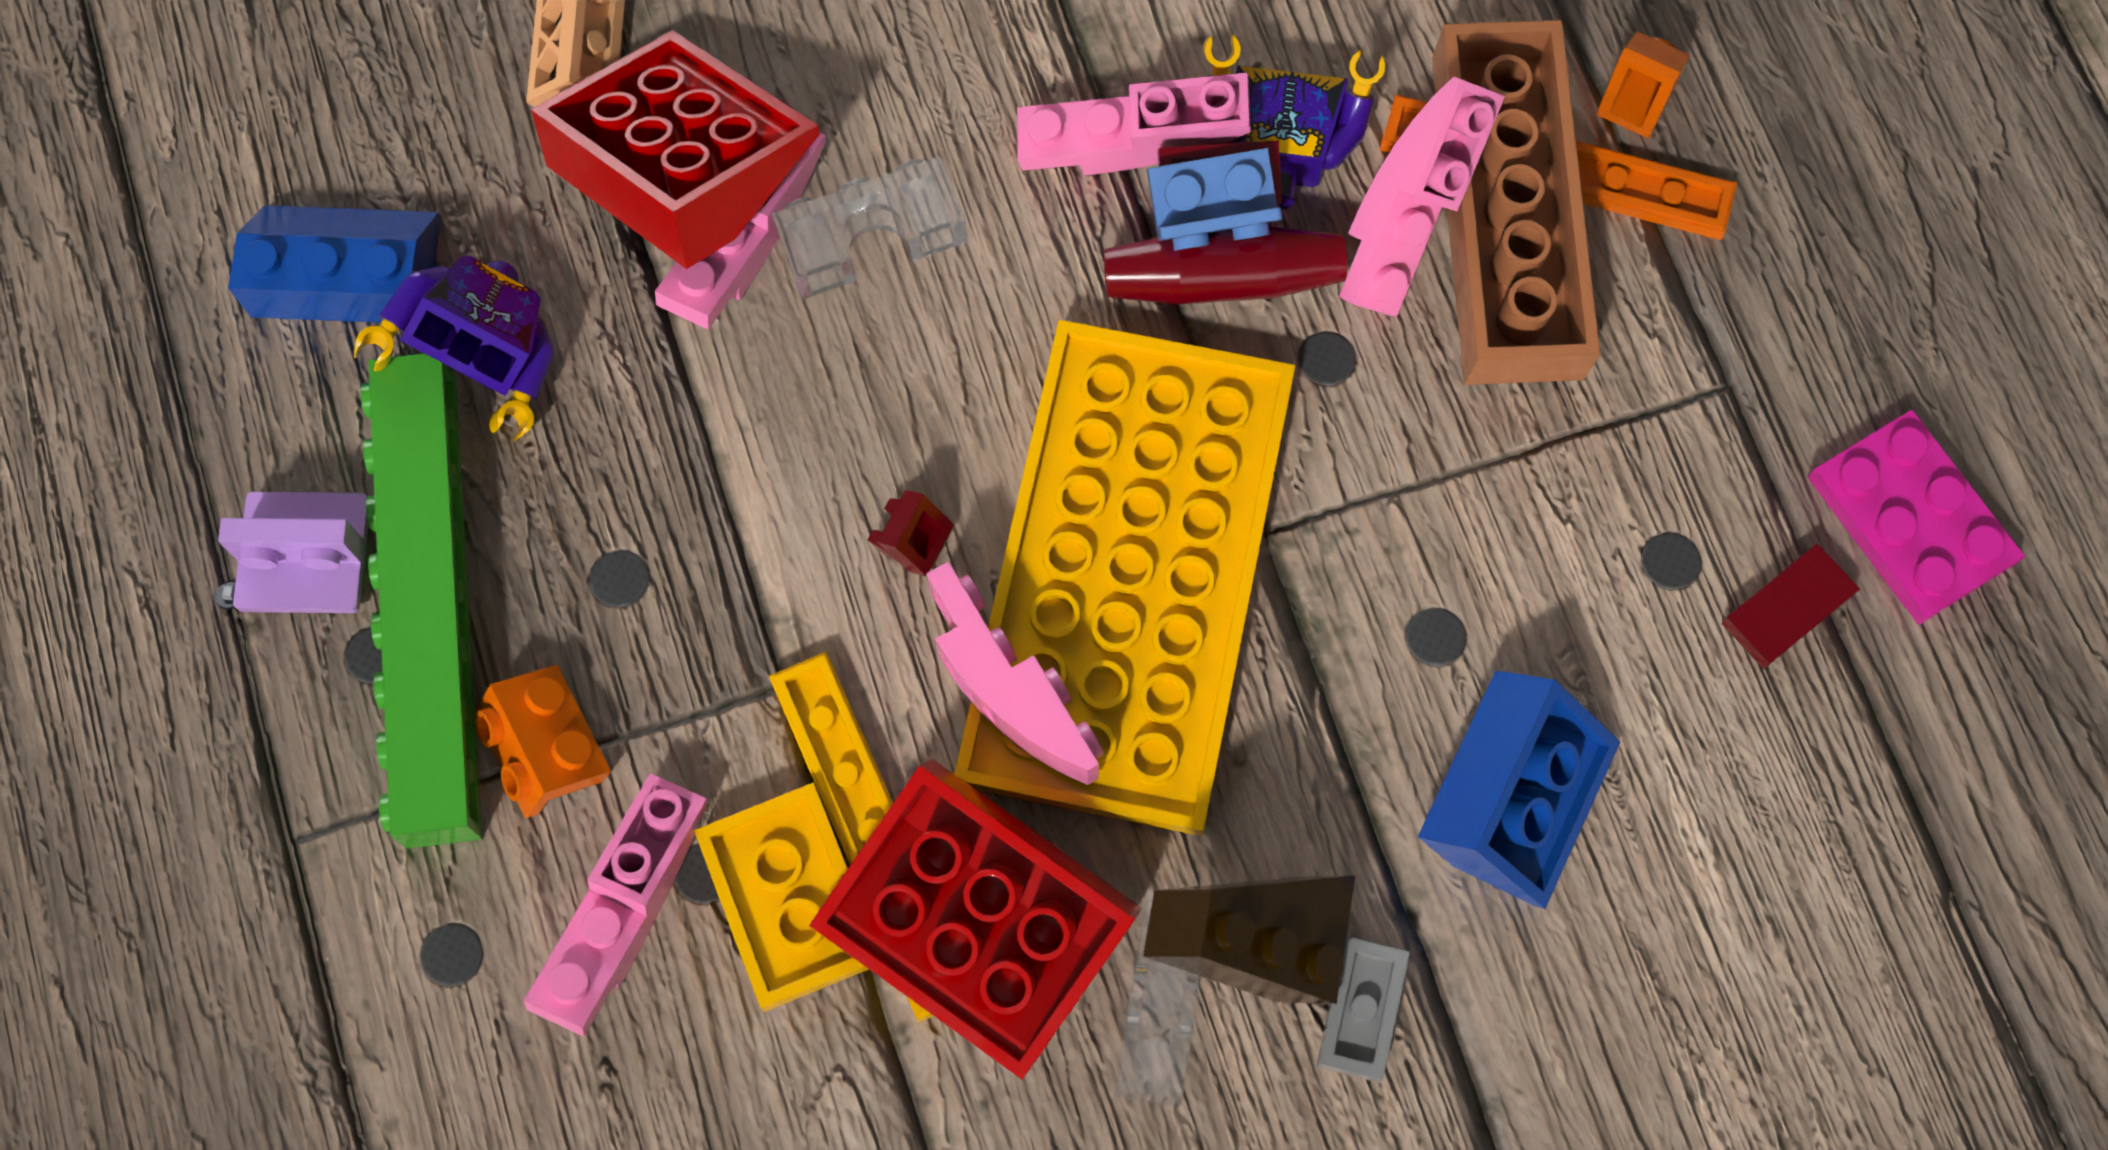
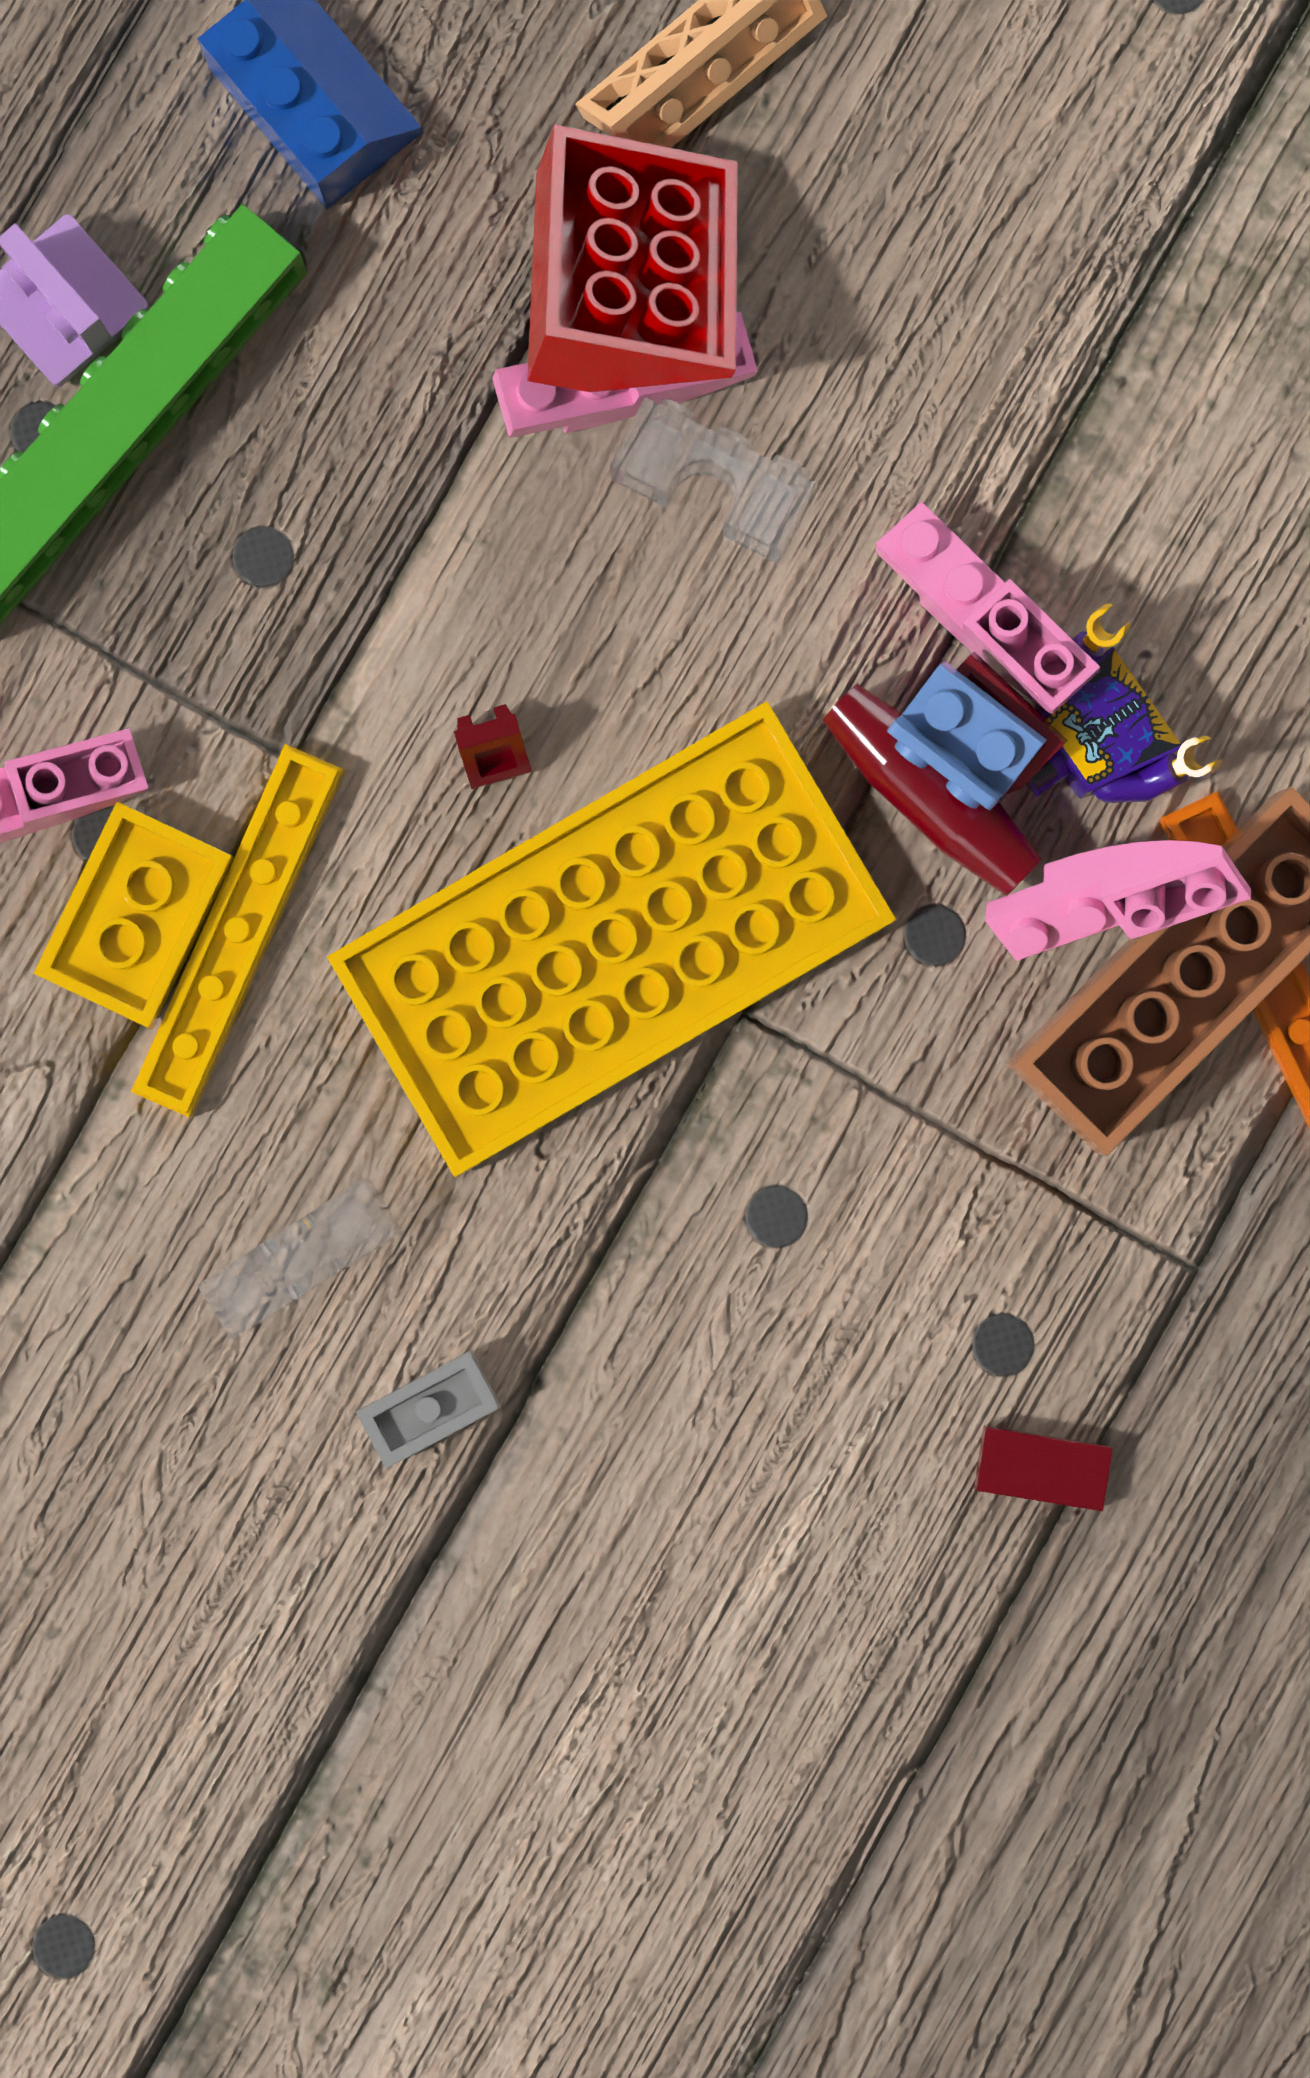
camera: 45 degrees right, 15 degrees up
(475, 323) = (345, 258): dark purple torso -> none
(539, 739) = (84, 619): orange bracket -> none
(975, 917) = (239, 1069): red slope -> none
(1016, 699) = (420, 955): bright pink slope -> none
(1257, 936) = (400, 1289): dark brown wedge -> none
(1520, 786) = (702, 1383): blue slope -> none
(1915, 517) = (1209, 1505): dark pink plate -> none

